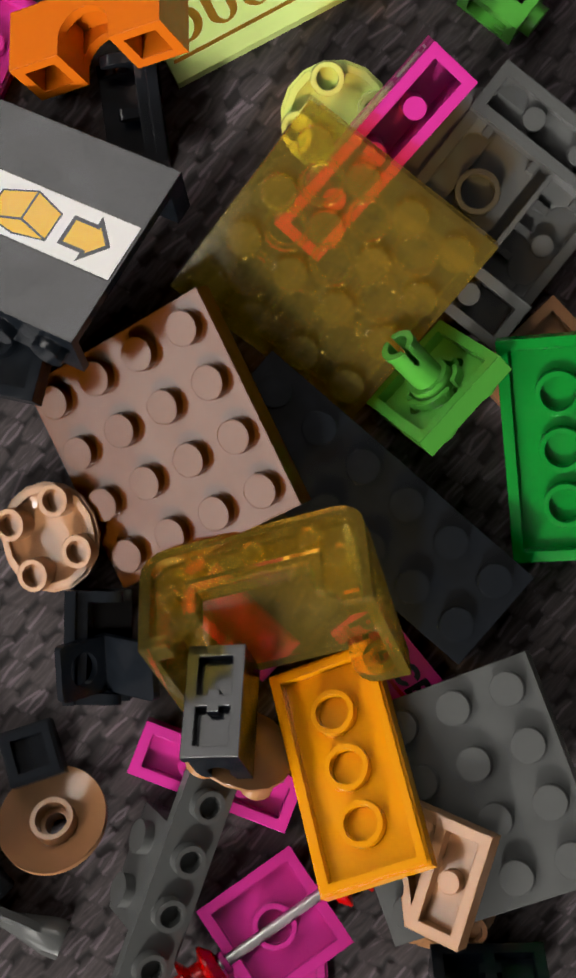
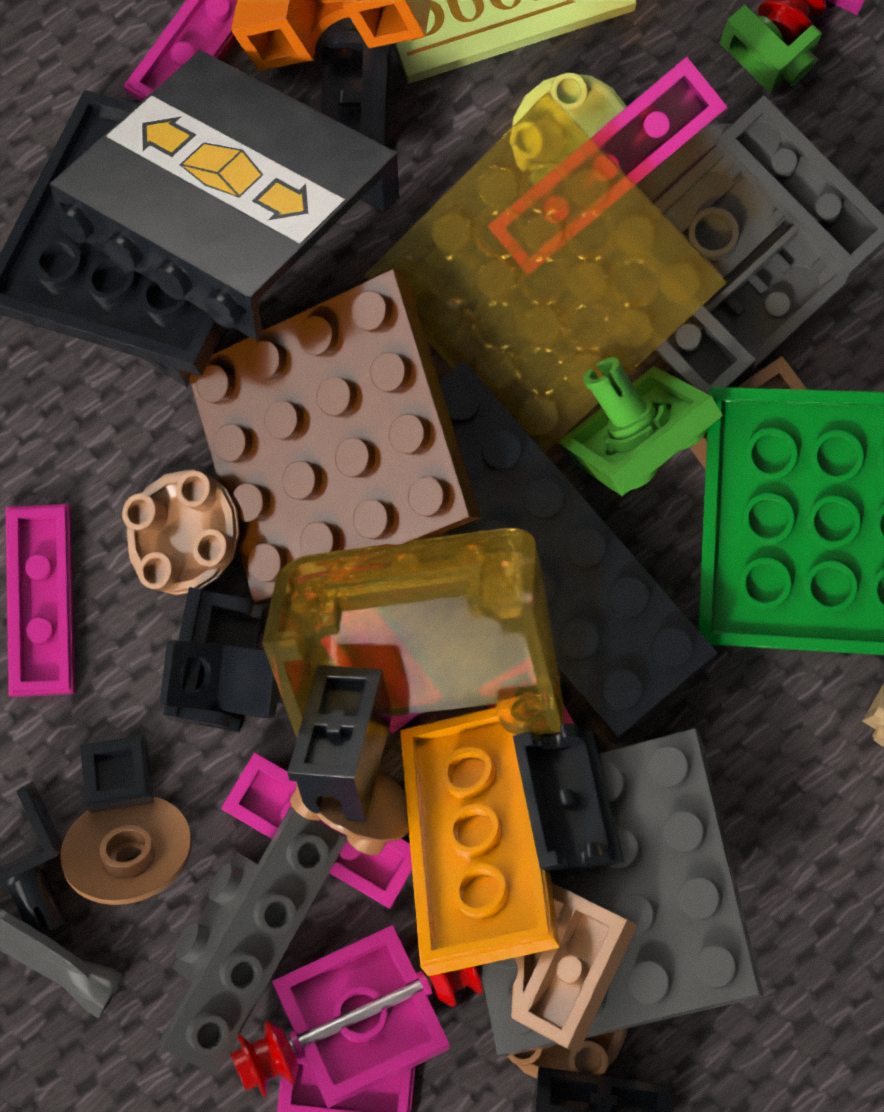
camera: 10 degrees right, 10 degrees down
(424, 734) = (568, 801): none -> black hinge

